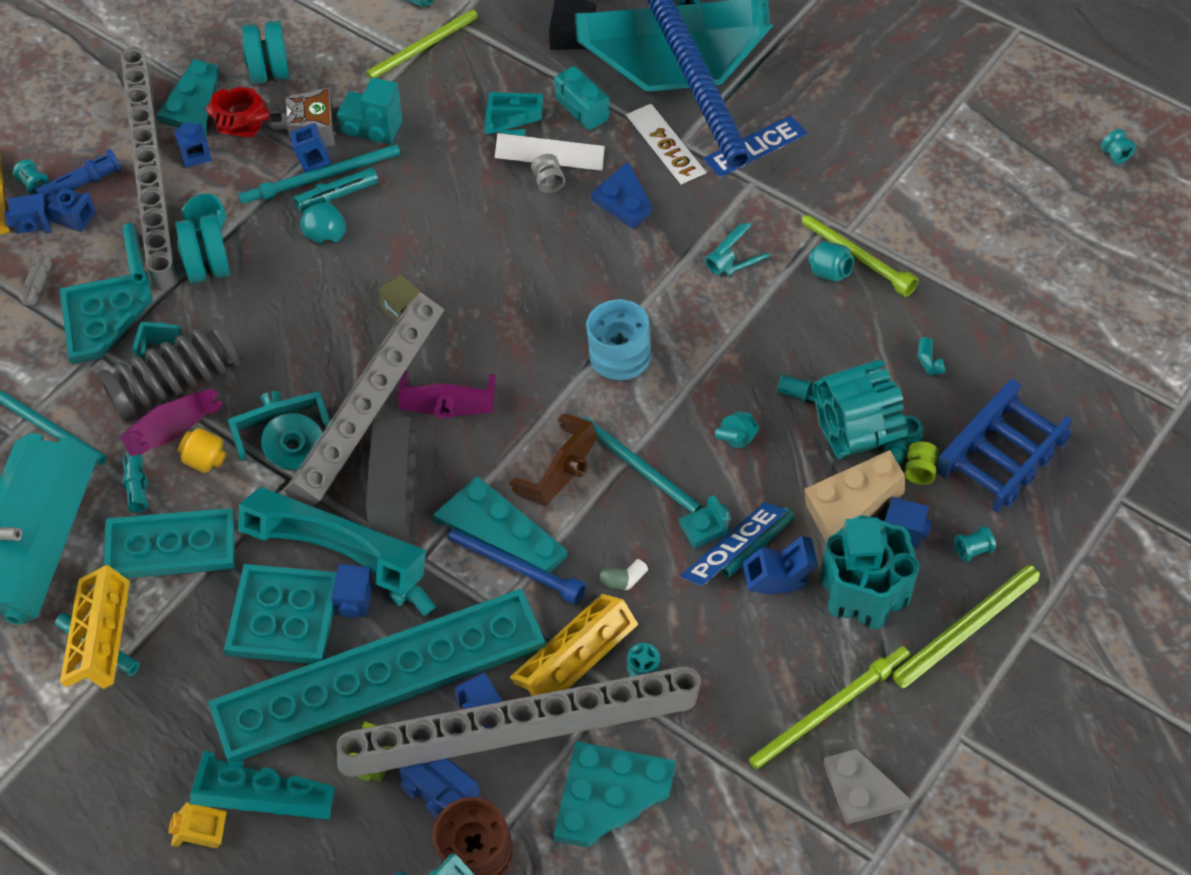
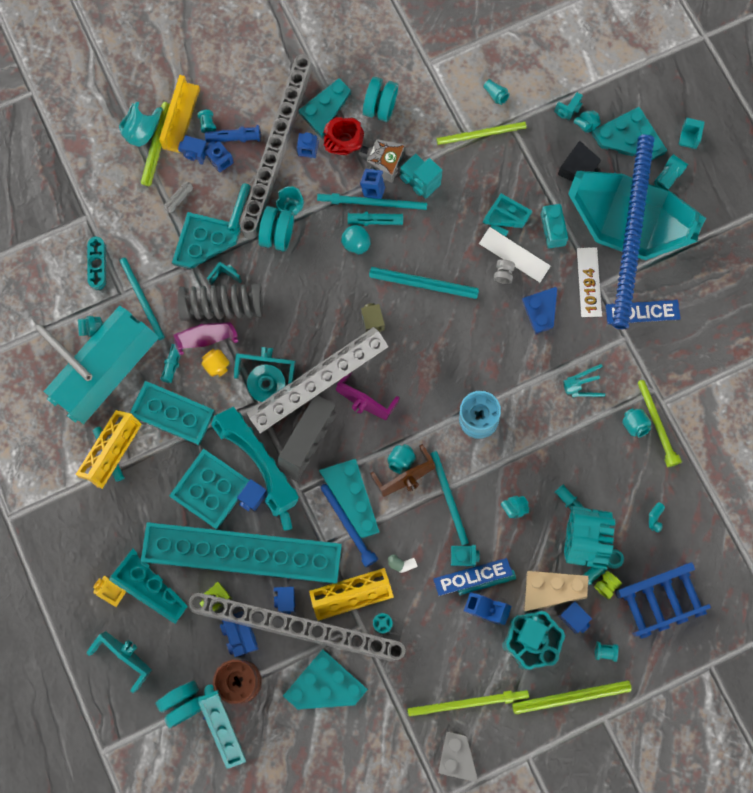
camera: 30 degrees right, 20 degrees up
(446, 233) = (423, 282): none -> teal axle
(542, 444) = (401, 458): none -> teal head

